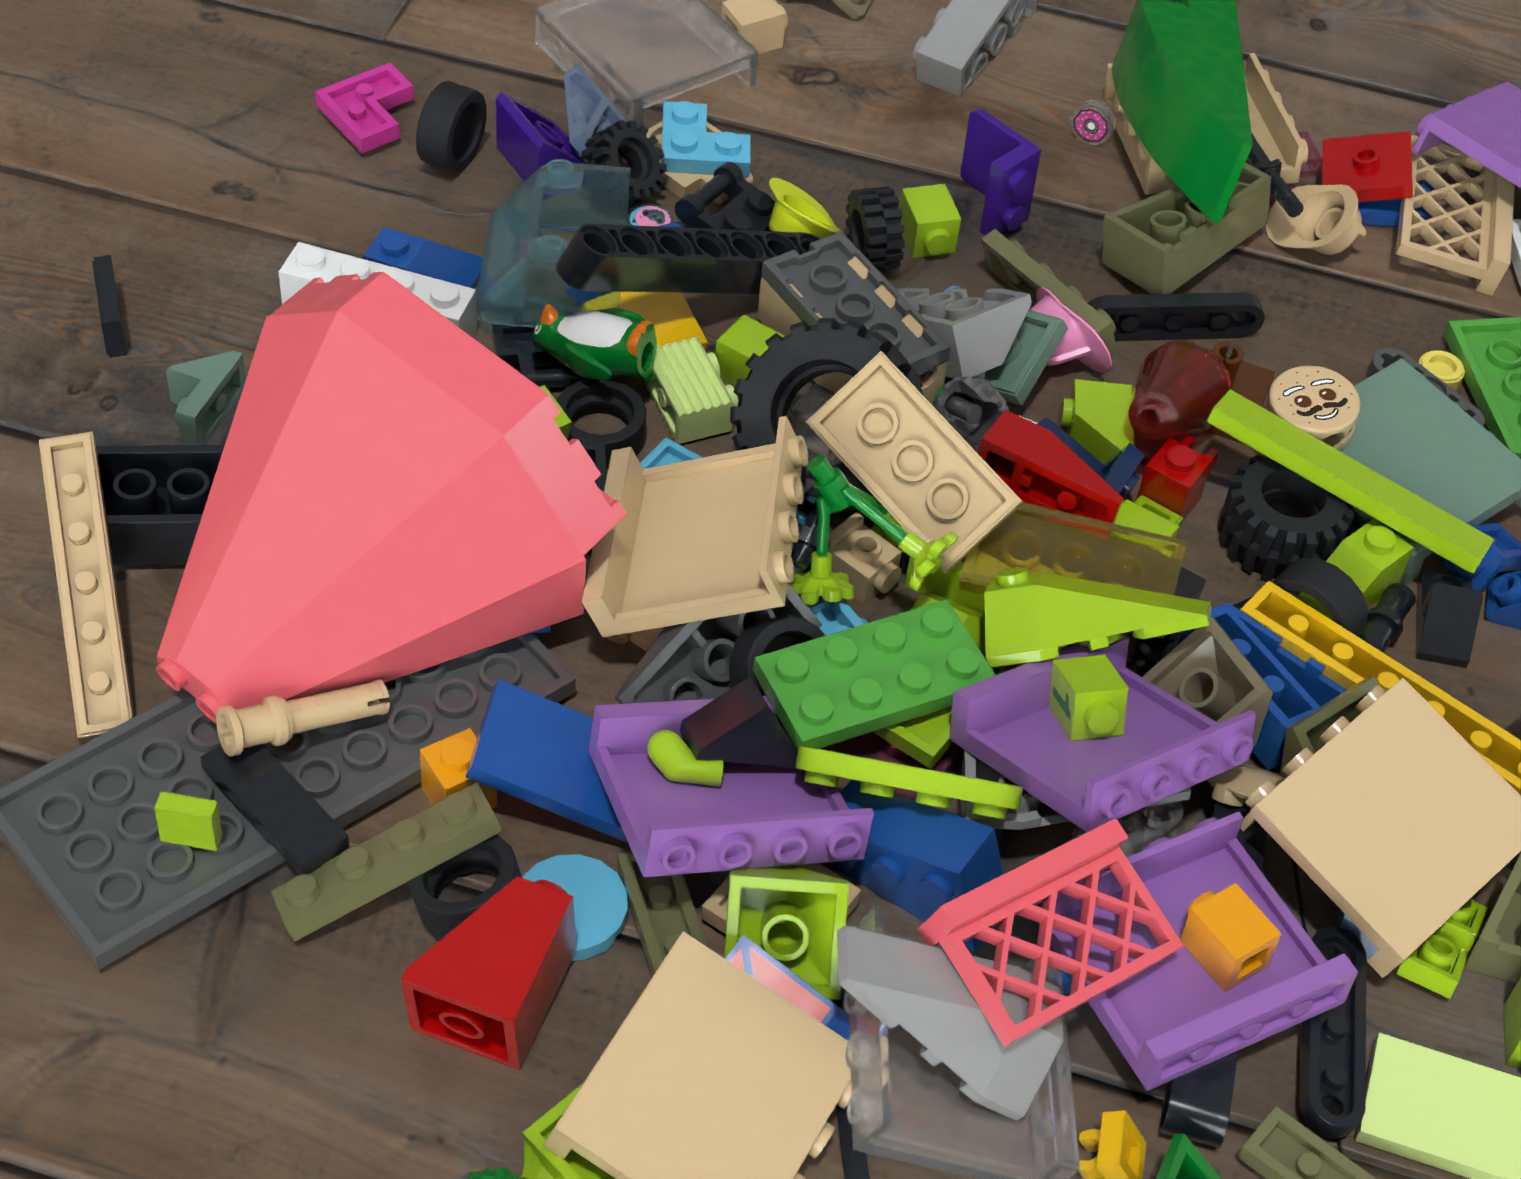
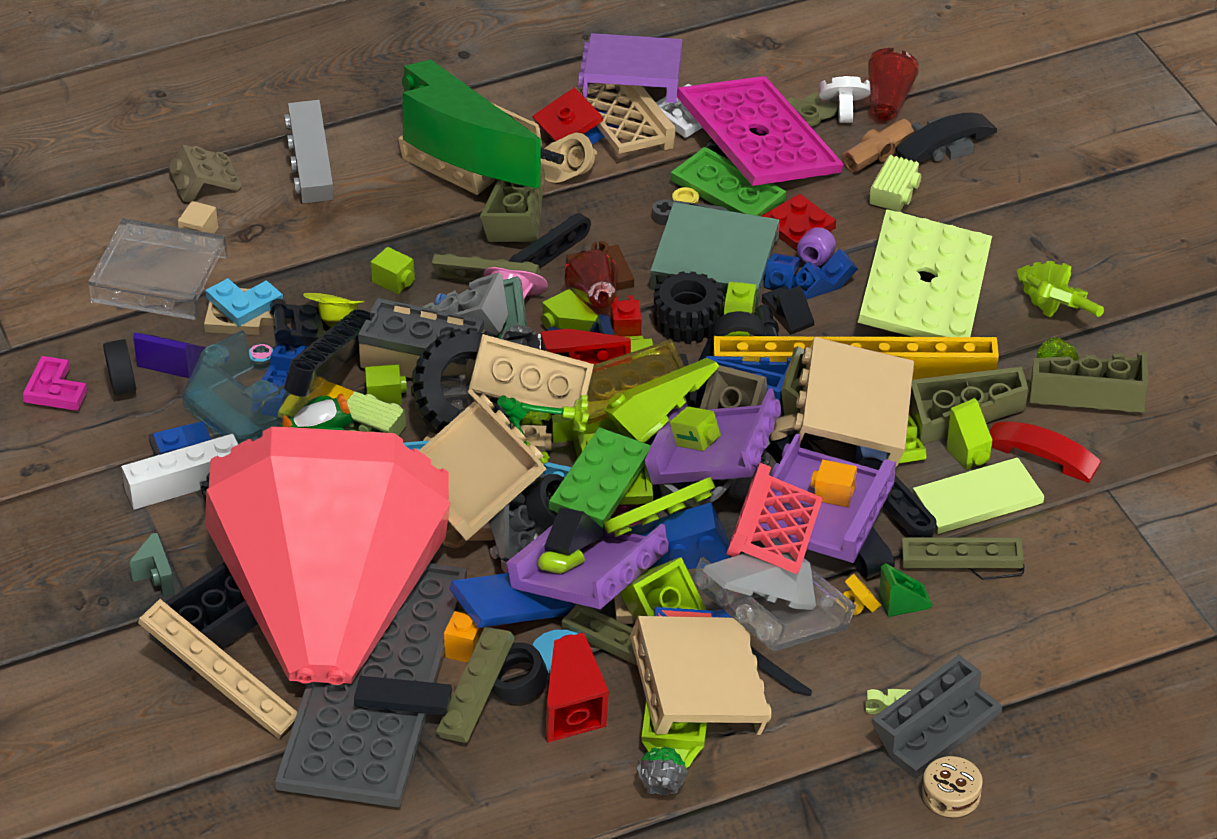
camera: 35 degrees left, 5 degrees down
(109, 306) = (55, 556): black tile -> none
(188, 821) = (381, 723): lime tile -> none
(280, 719) = (374, 660): tan pin -> none
(586, 108) = (185, 320): sand blue wing -> none
(636, 150) = (222, 324): black tyre -> none
(876, 226) = (376, 283): black tyre -> none
(1002, 169) = (404, 223): dark purple bracket -> none
(1093, 122) = (416, 173): tile -> none
(1317, 403) = (661, 250): tan head -> none
(1351, 481) = (706, 271): lime tile -> none

